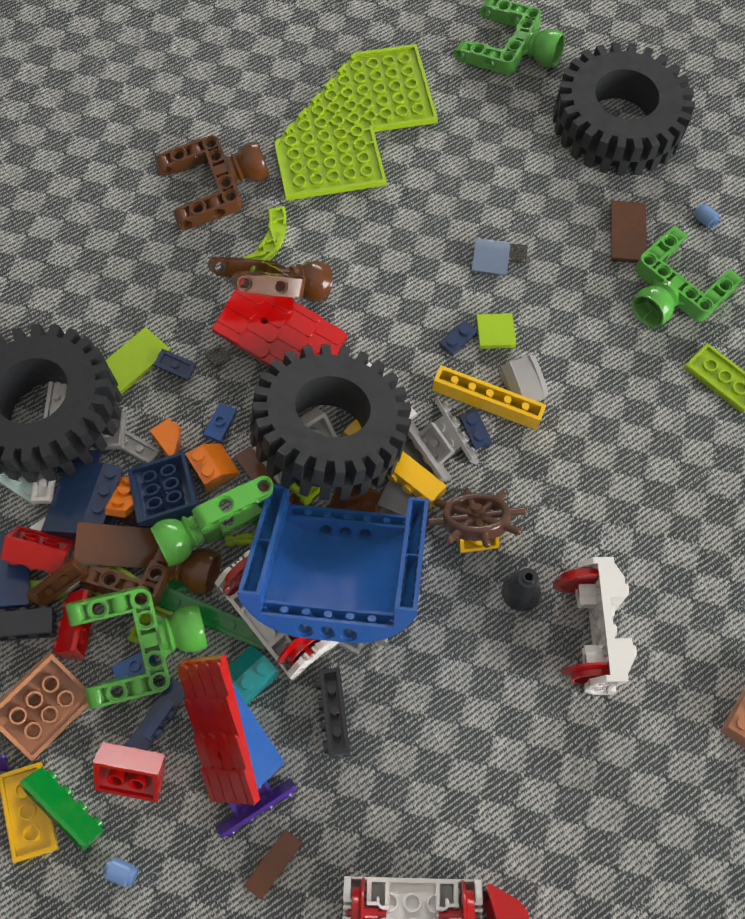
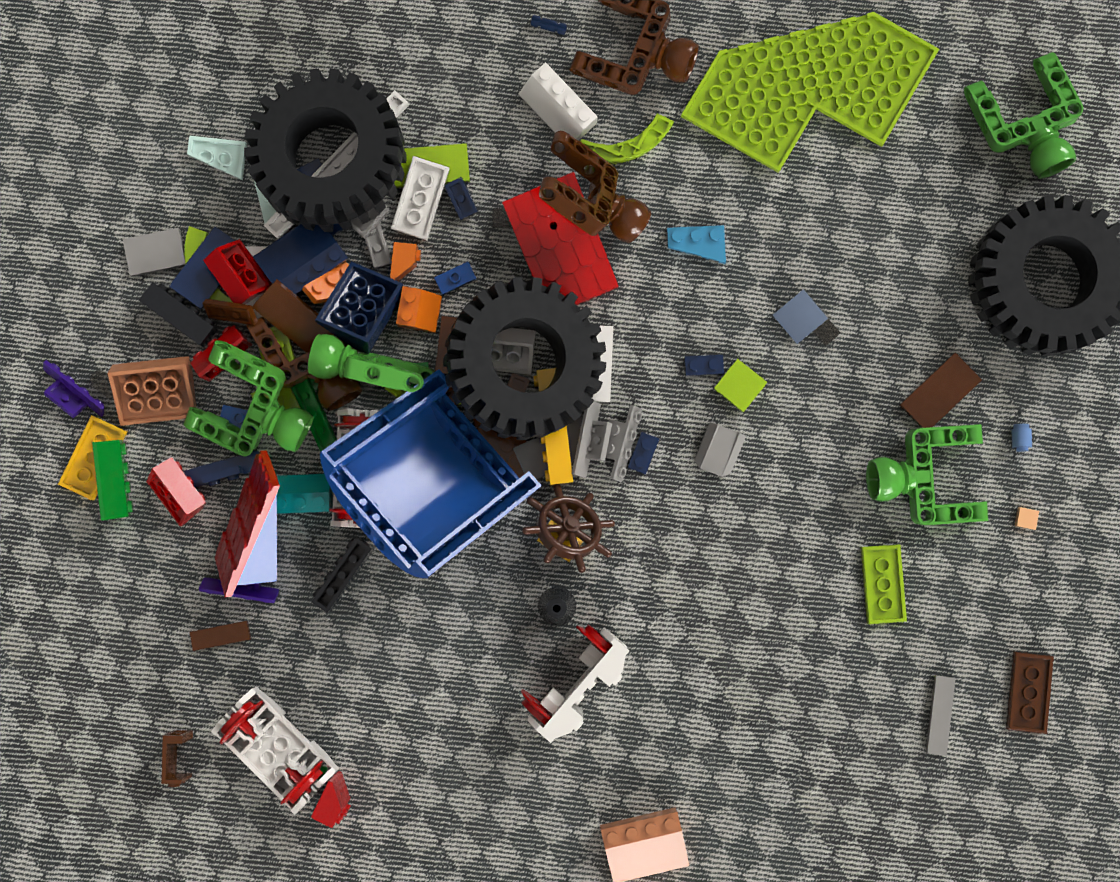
camera: 50 degrees right, 20 degrees up
(120, 872) = (119, 553): medium blue brick -> none
(137, 212) = (548, 24): none -> dark blue axle
(143, 388) = (420, 198): none -> white tile
(189, 252) = (557, 103): none -> white slope
(375, 263) = (699, 240): none -> dark azure wing
(488, 397) = (675, 438): yellow brick -> none

